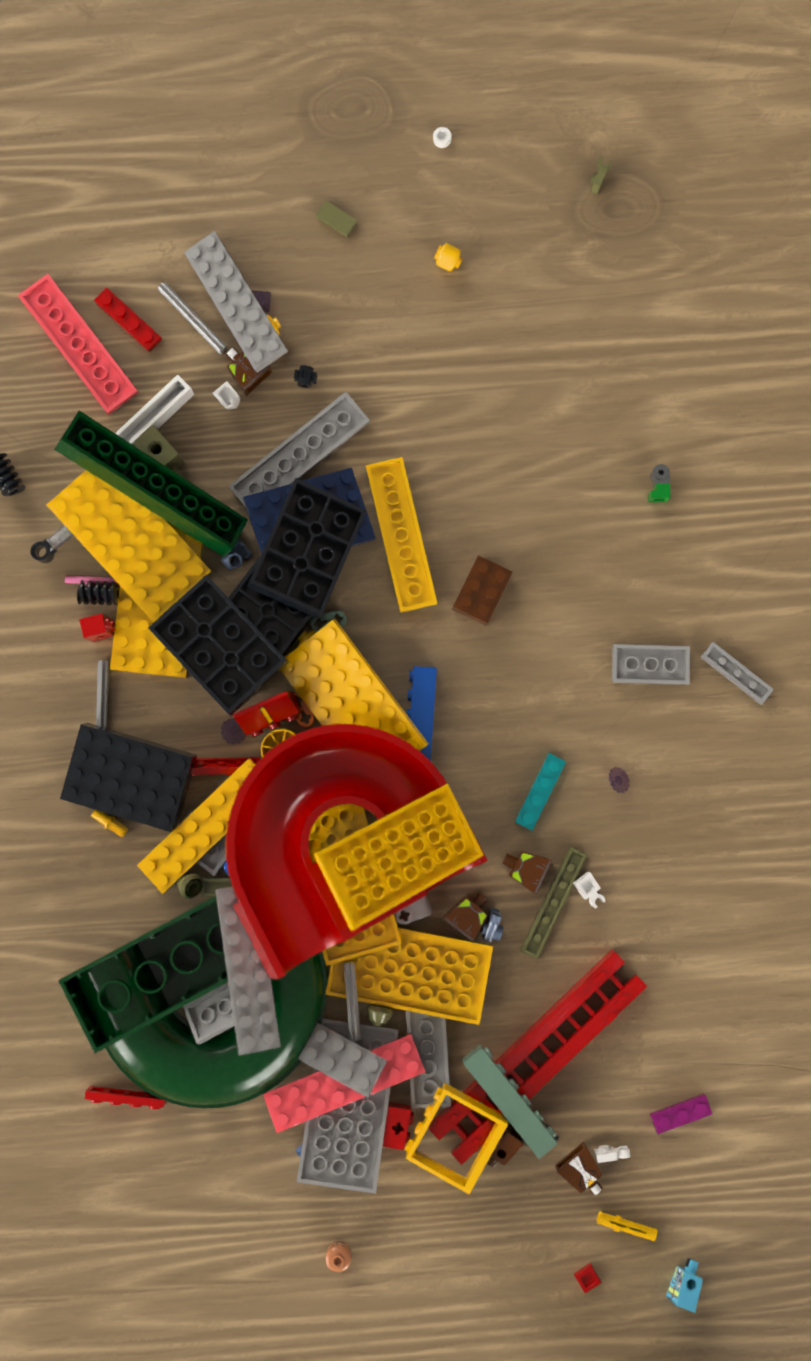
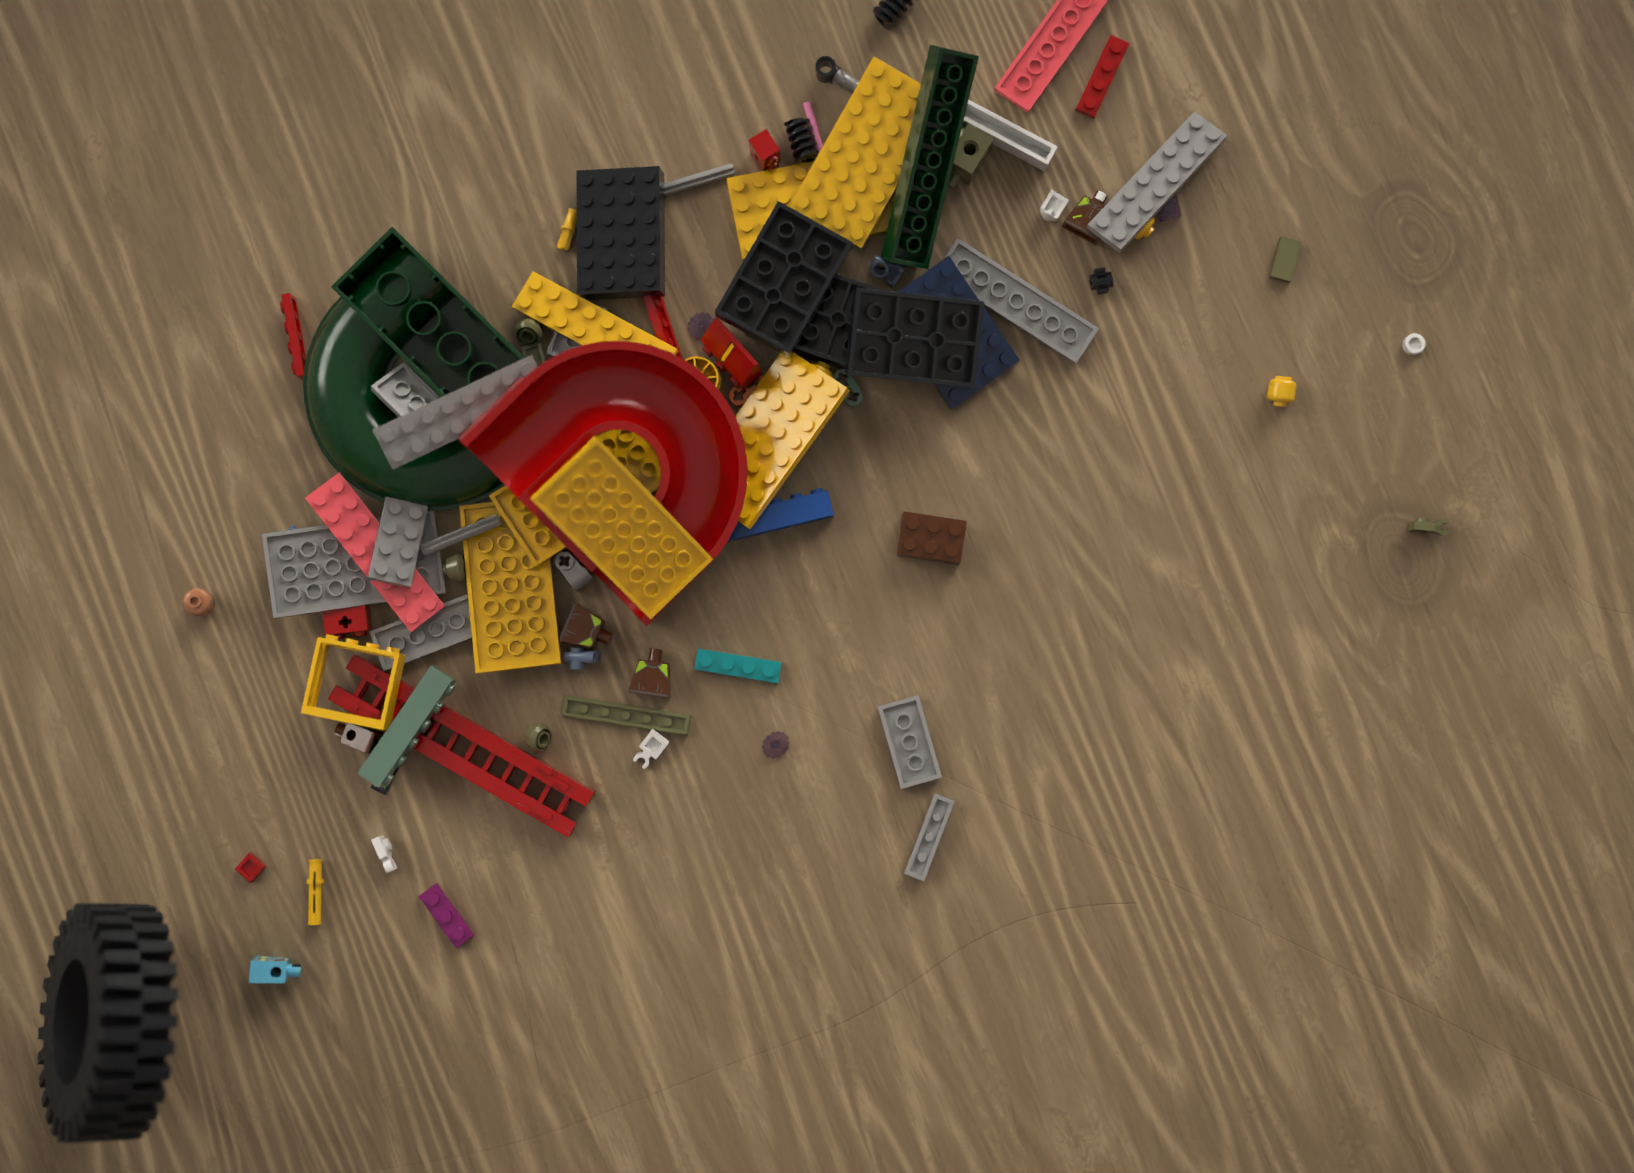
camera: 80 degrees right, 0 degrees up
(192, 318) = (1126, 143): light grey axle -> none
(401, 534) = (964, 435): yellow plate -> none
(551, 986) = (538, 737): none -> olive cone
(580, 1170) = (358, 826): reddish brown torso -> none
(661, 484) = (1116, 691): leg -> none

